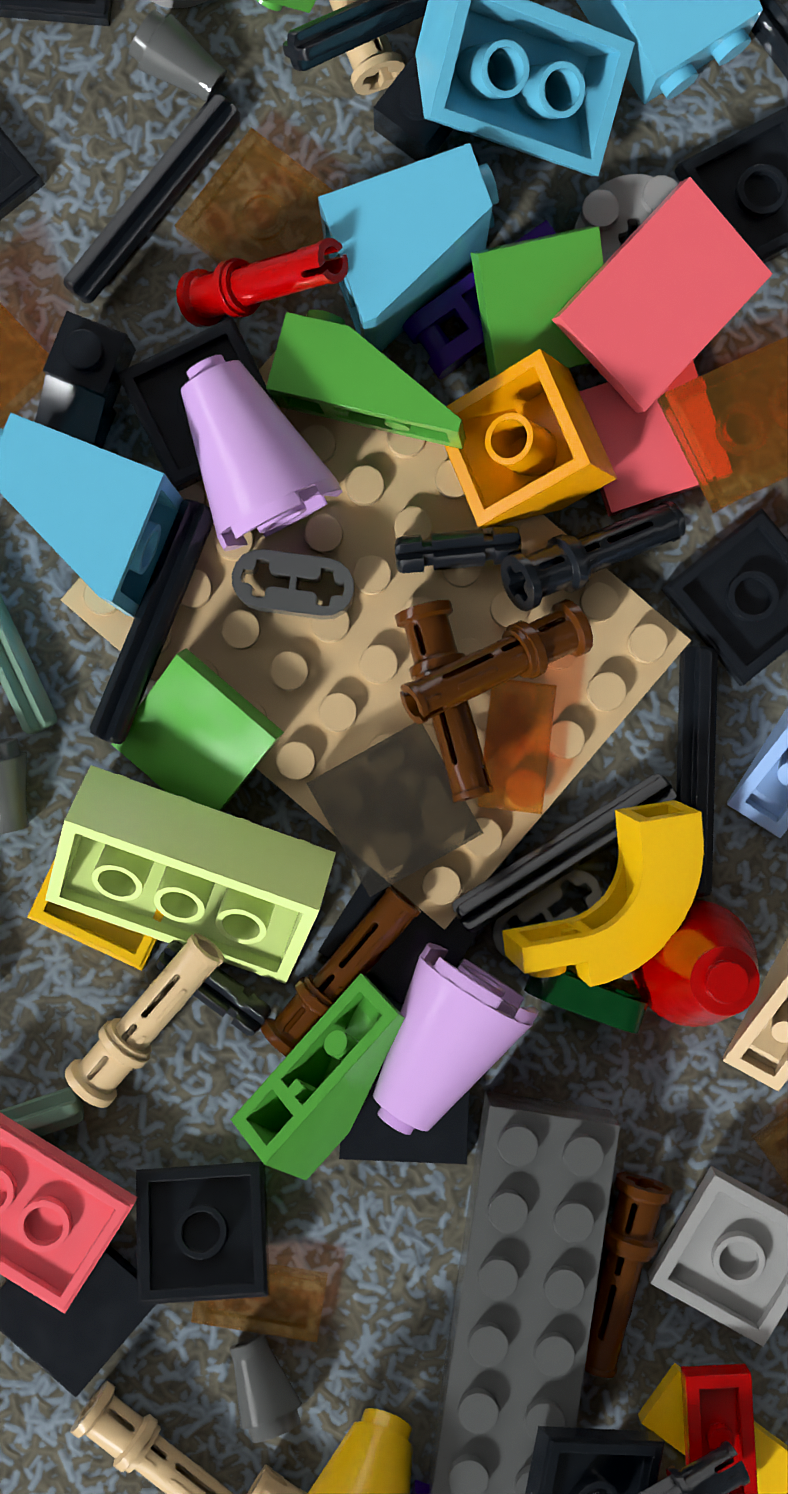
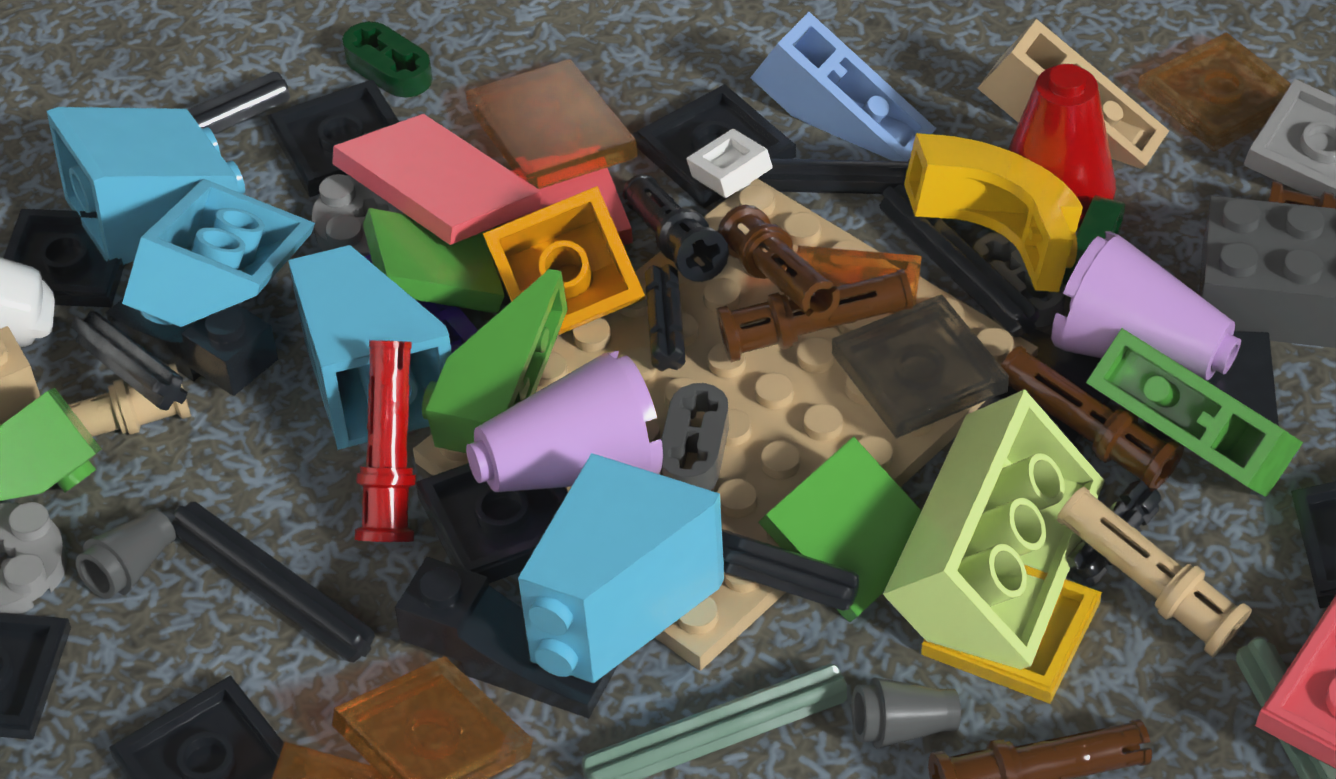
camera: 90 degrees left, 40 degrees down
(255, 206) = (297, 493): clear orange tile -> none
(686, 610) = (729, 163): none -> white plate

